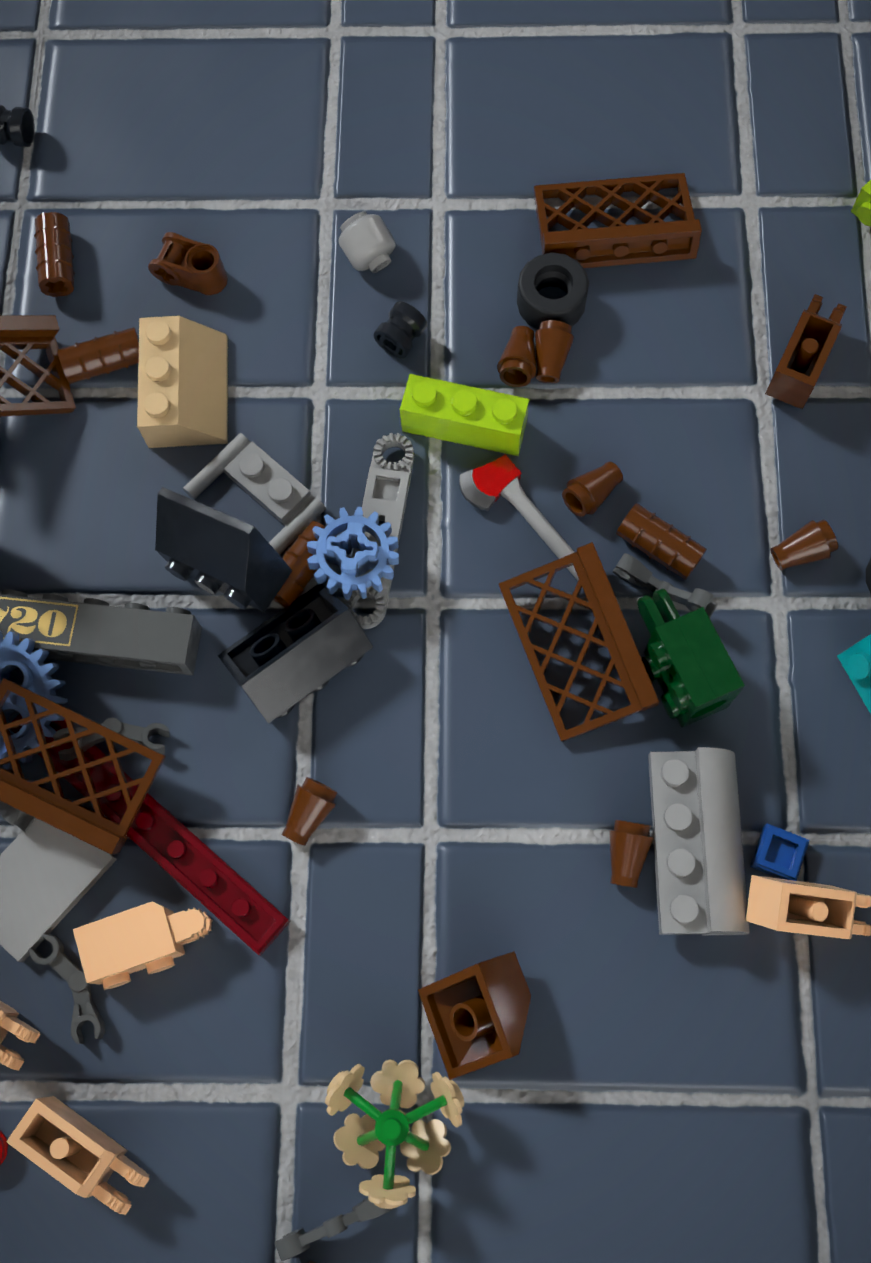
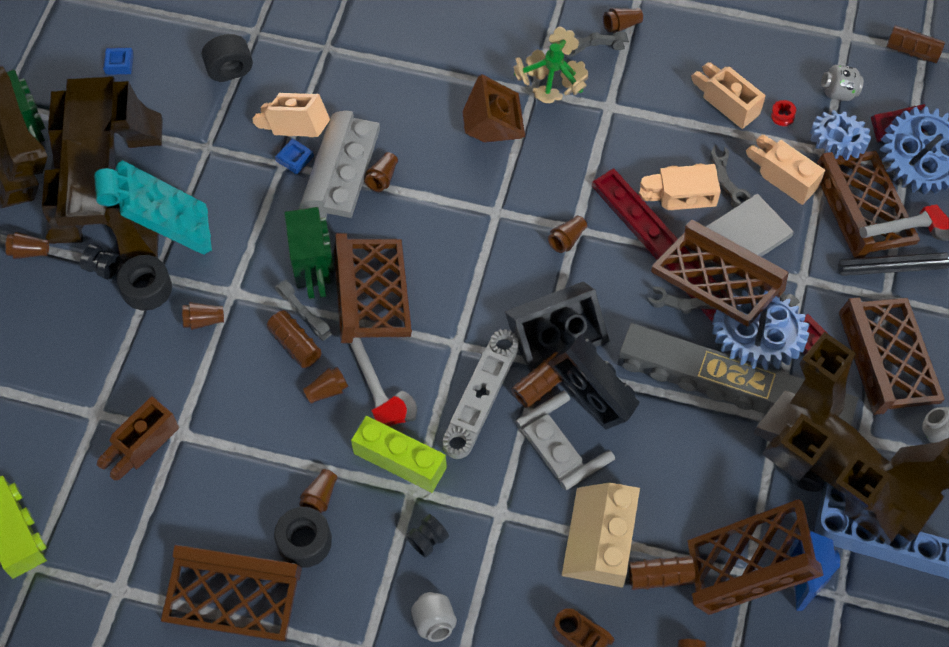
camera: 170 degrees left, 10 degrees down
(337, 548) = (512, 372): medium blue gear -> none
(518, 360) = (345, 493): reddish brown cone -> none

